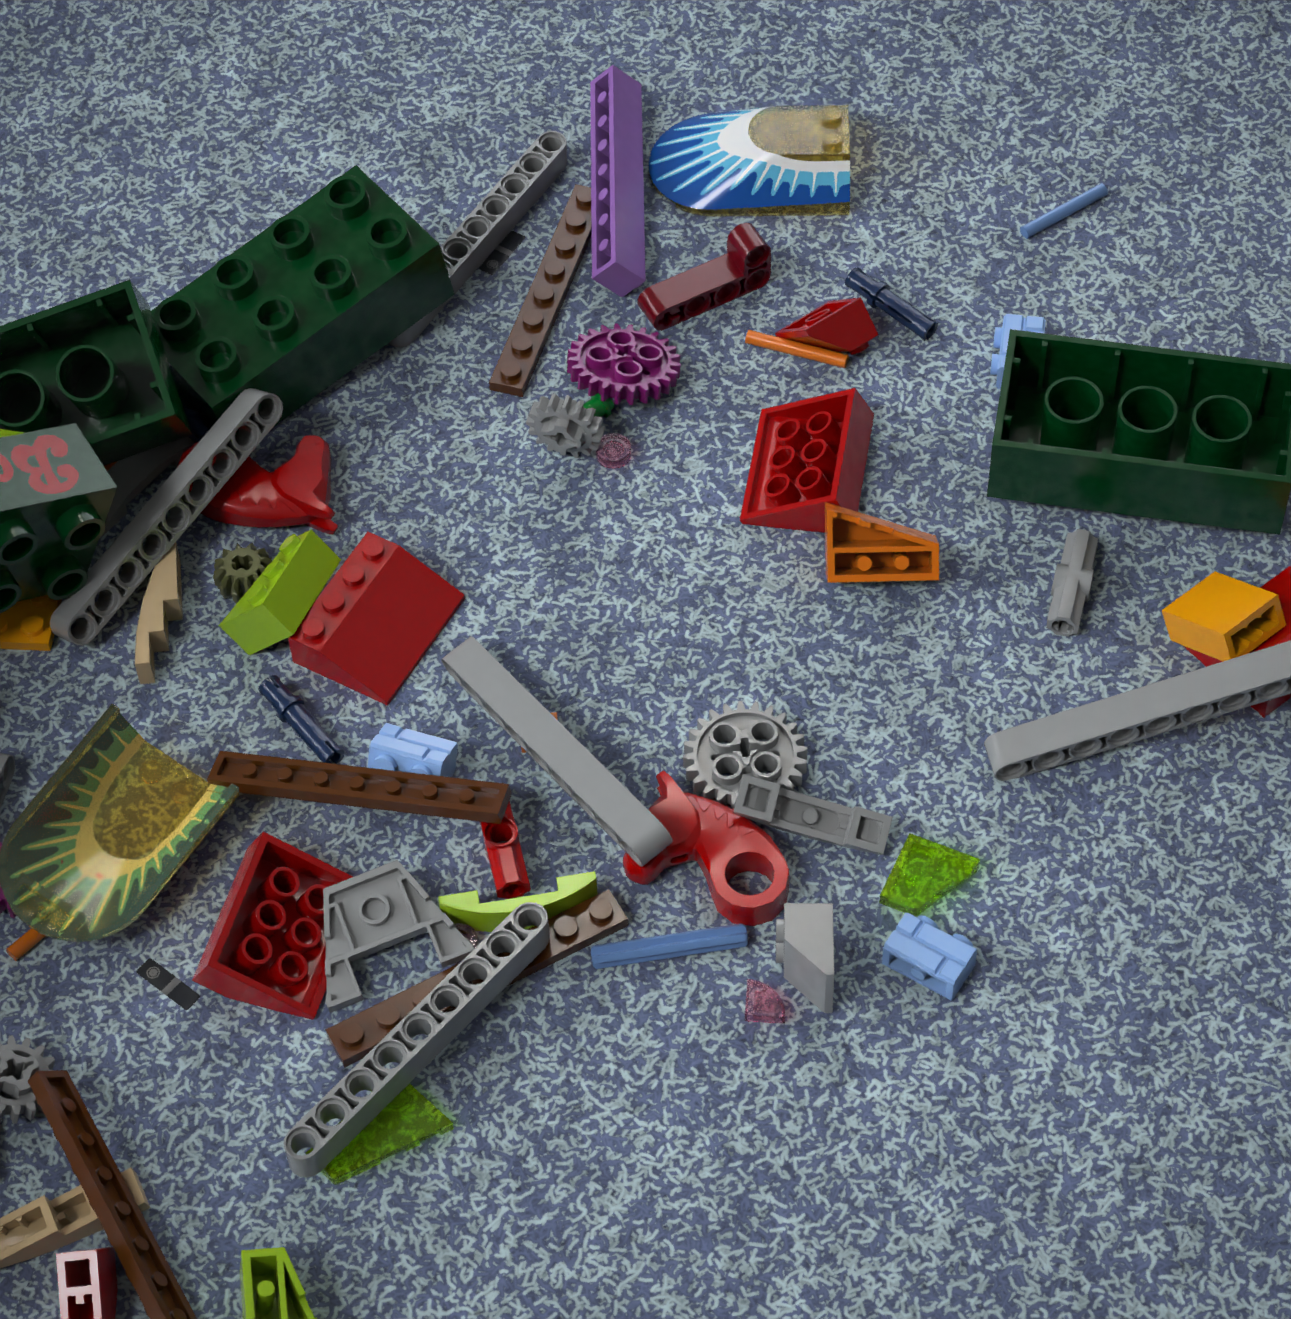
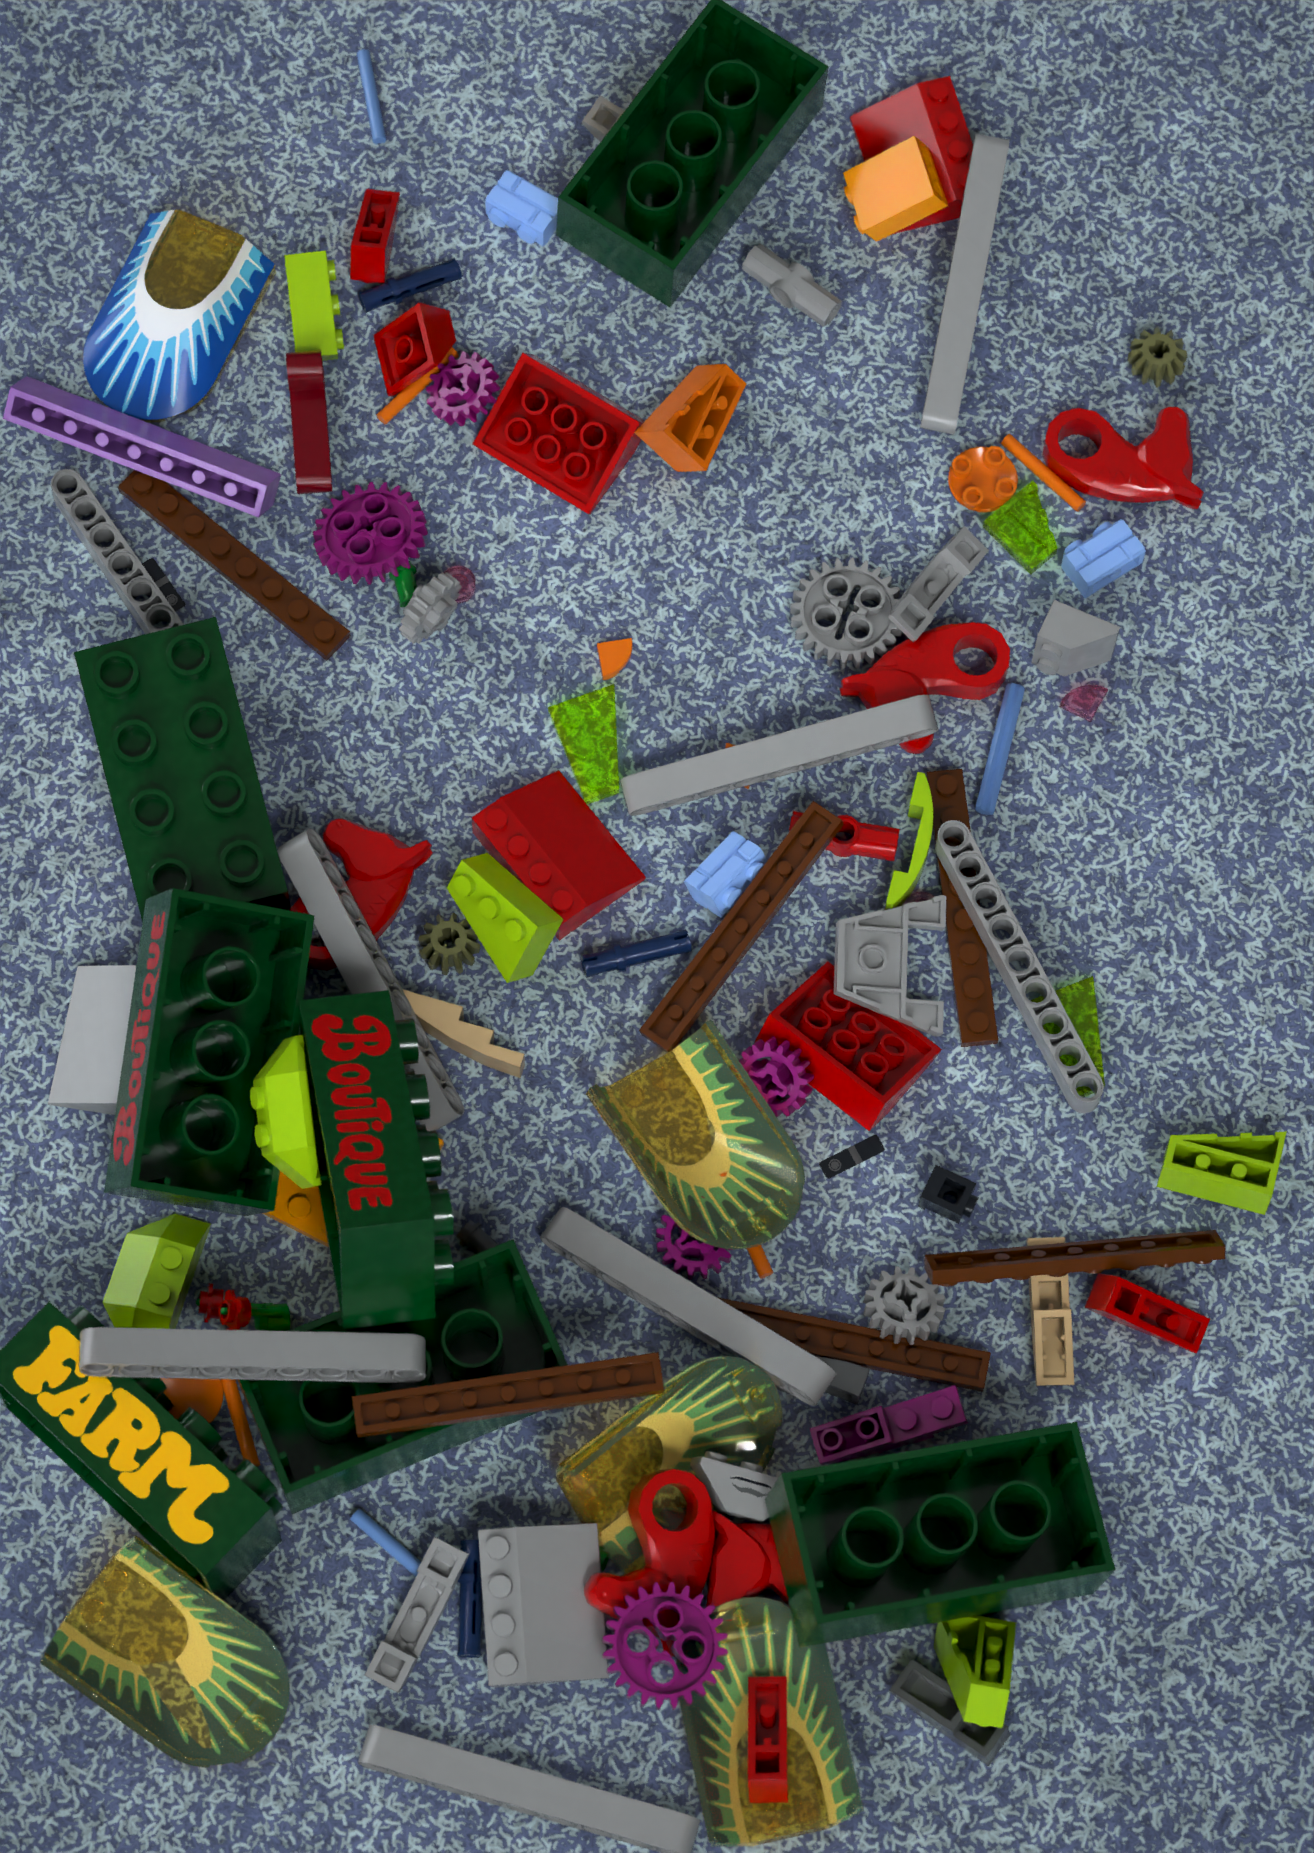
camera: 70 degrees left, 15 degrees up
(145, 1065) = (943, 1183): none -> black brick
(209, 872) = (778, 1076): none -> magenta gear
(507, 603) = (590, 741): none -> clear neon green wing
(602, 592) = (614, 656): none -> orange tile
(805, 374) = (477, 378): none -> magenta gear
(823, 238) = (313, 304): none -> lime wedge
(919, 258) = (374, 236): none -> red slope
(960, 818) = (982, 478): none -> orange dish
(1000, 872) = (1043, 472): none -> orange bar
(1038, 939) = (1124, 472): none -> red animal
(1189, 921) = (1144, 361): none -> olive gear

